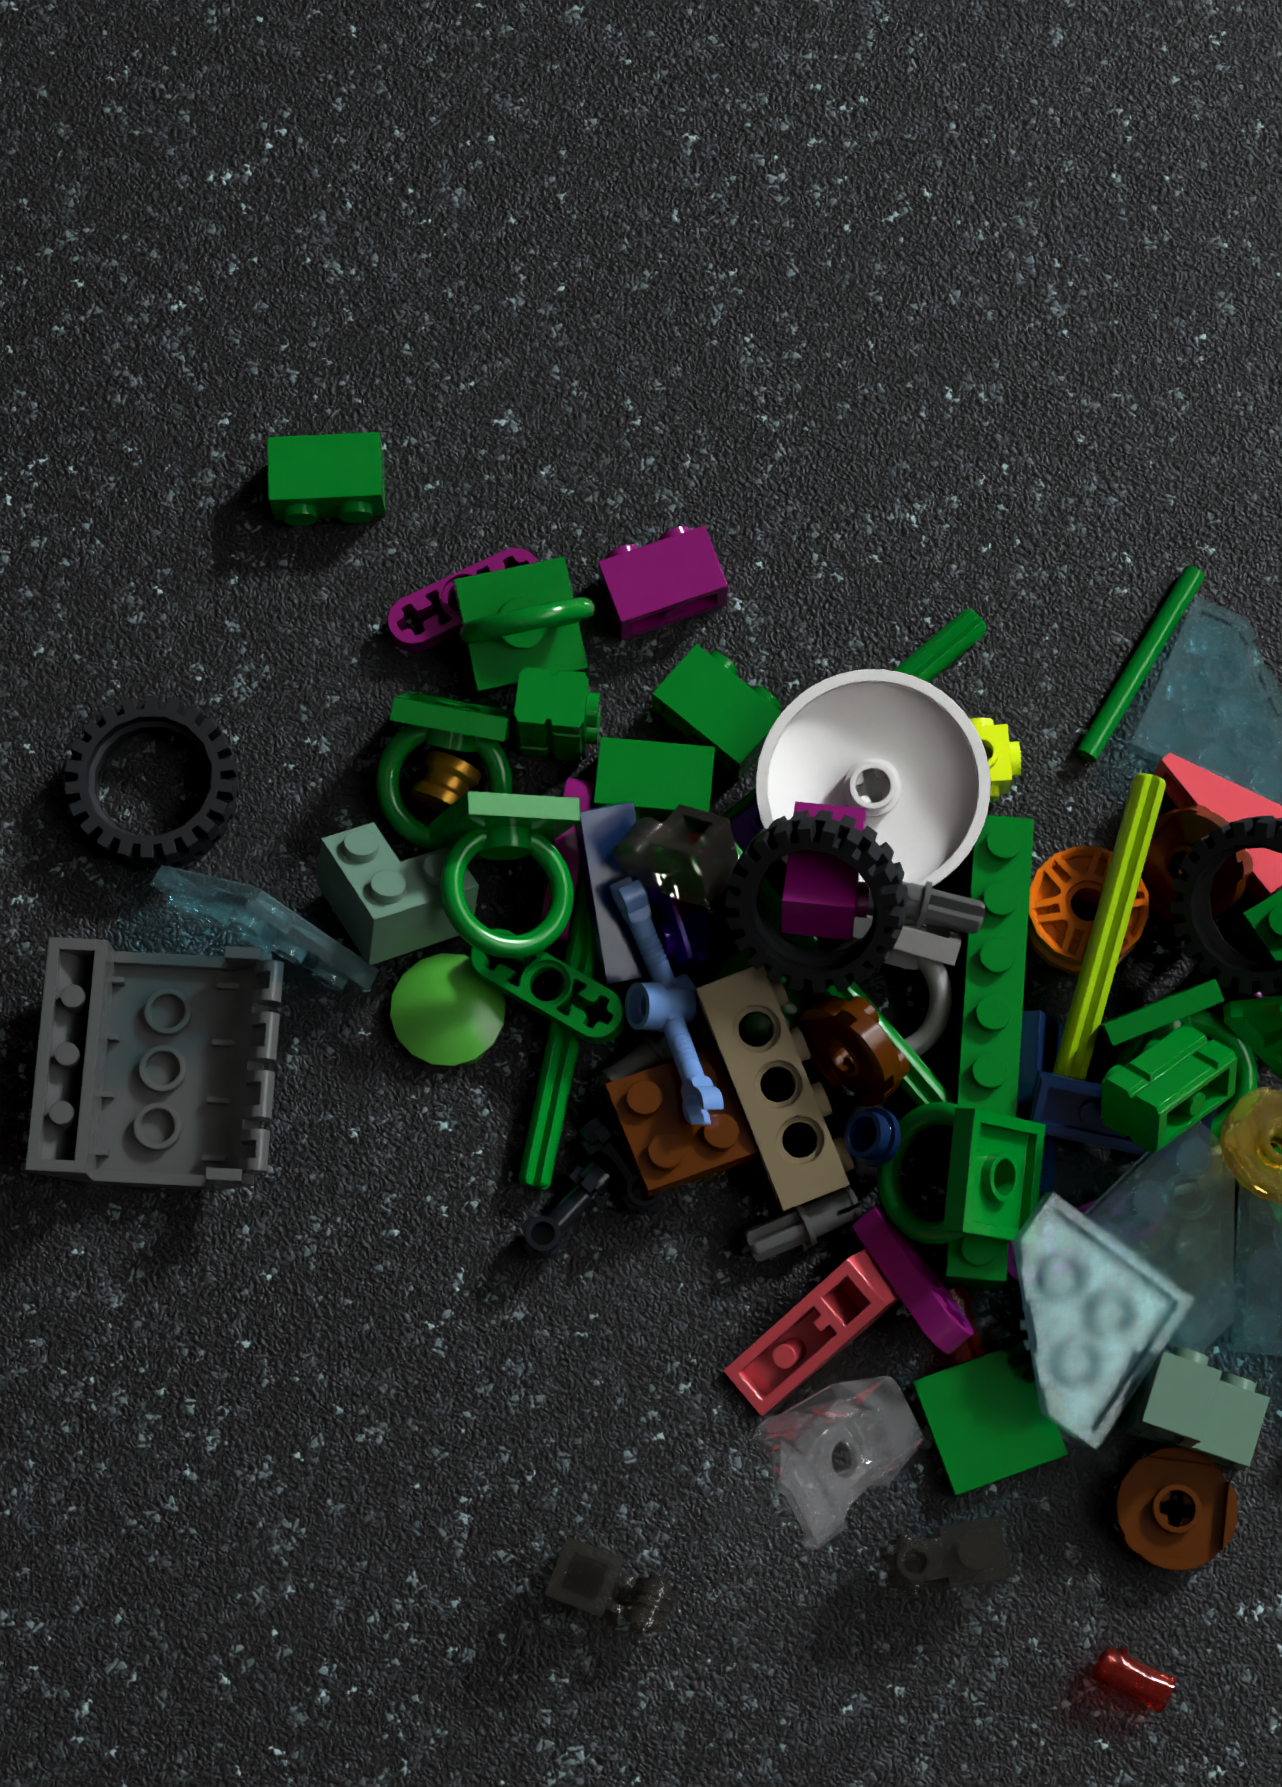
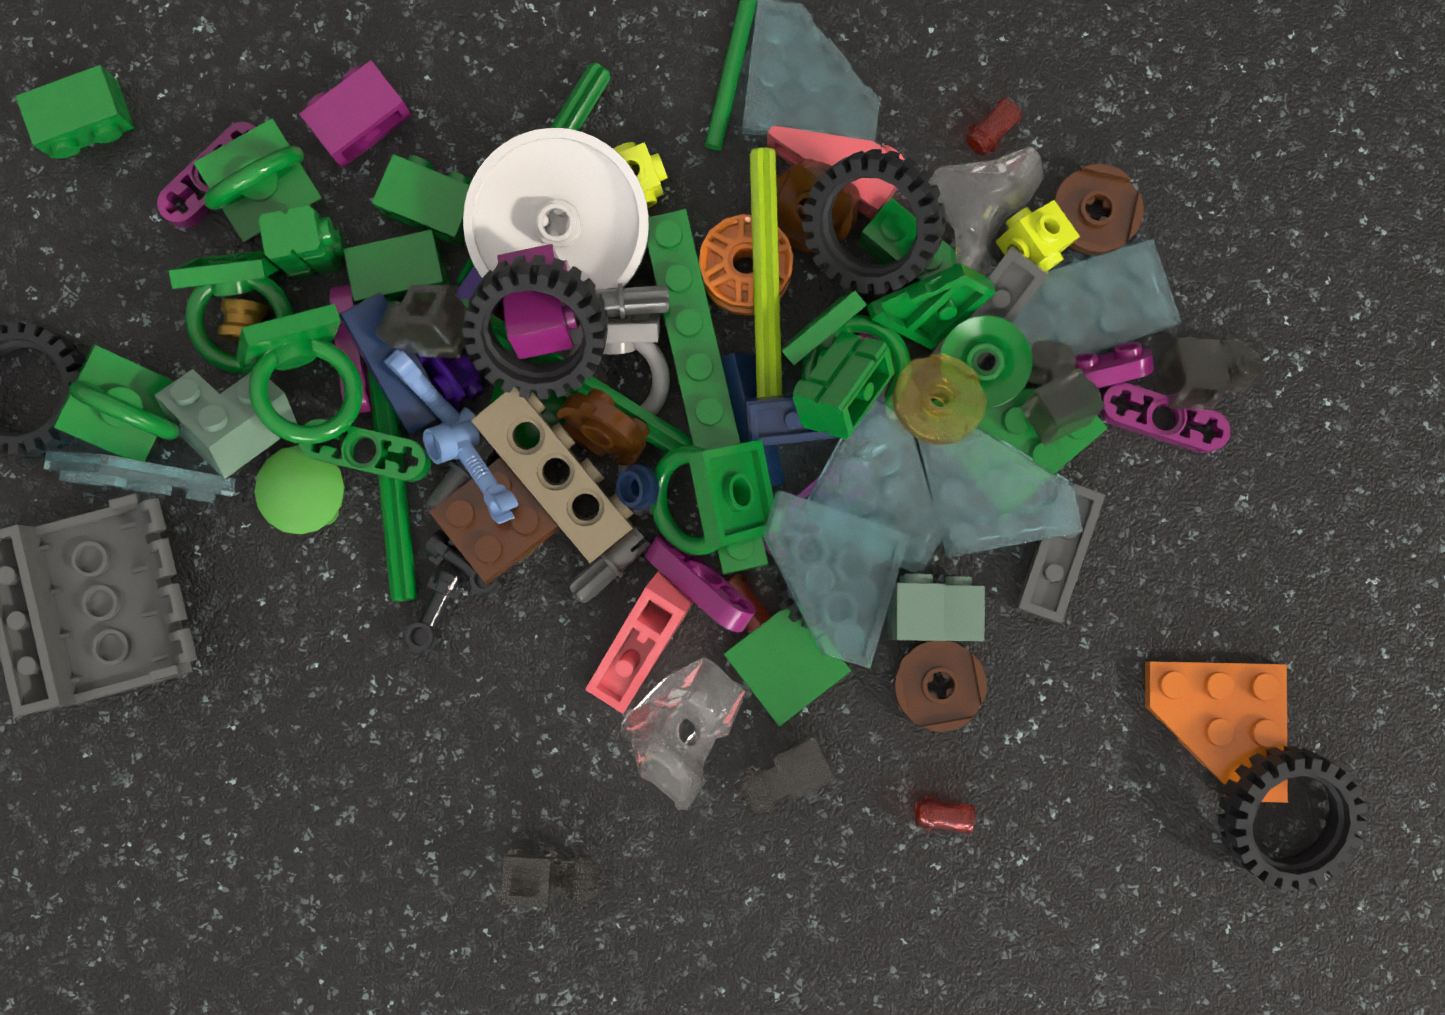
camera: 15 degrees left, 10 degrees up
(267, 835) = (116, 406): none -> green tile

